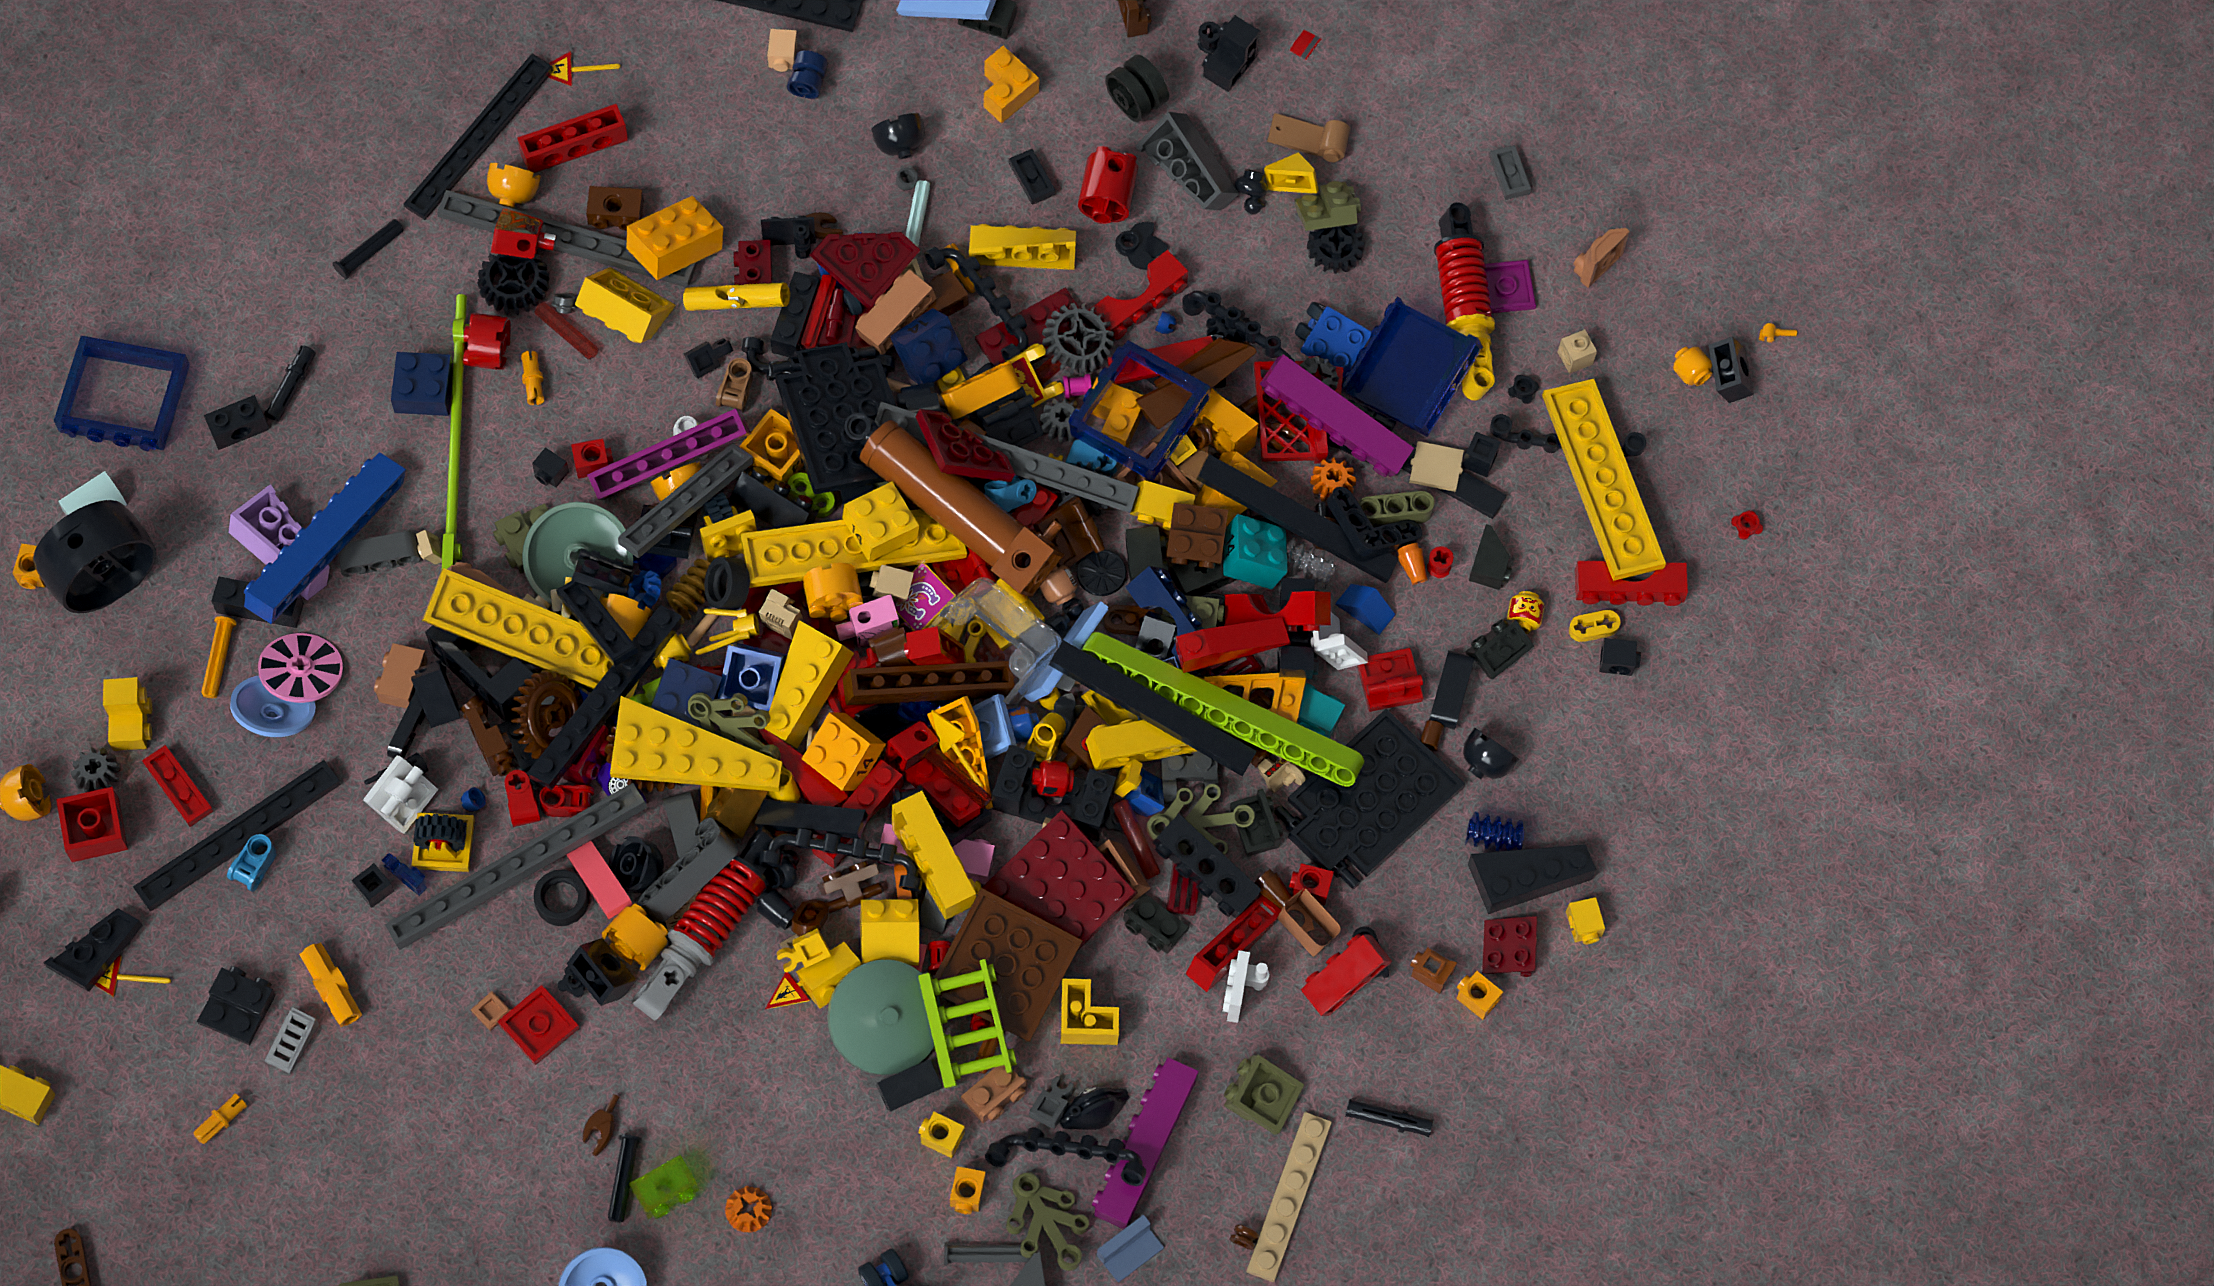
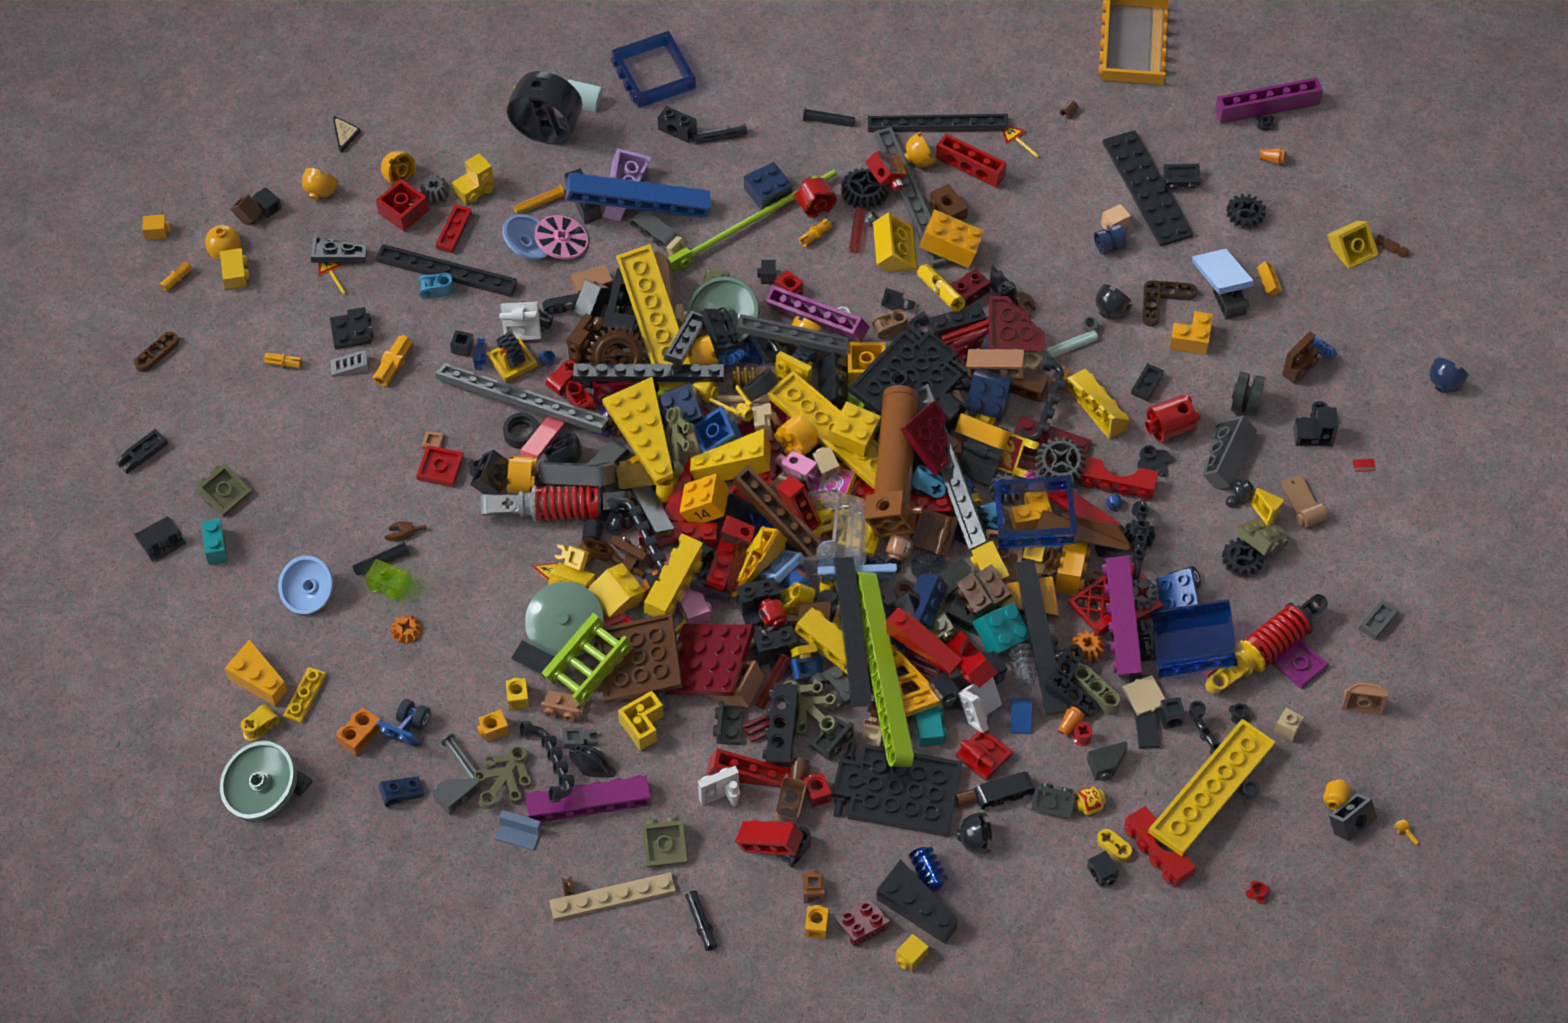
camera: 60 degrees right, 10 degrees down
(920, 77) = (1159, 292): none -> dark brown beam

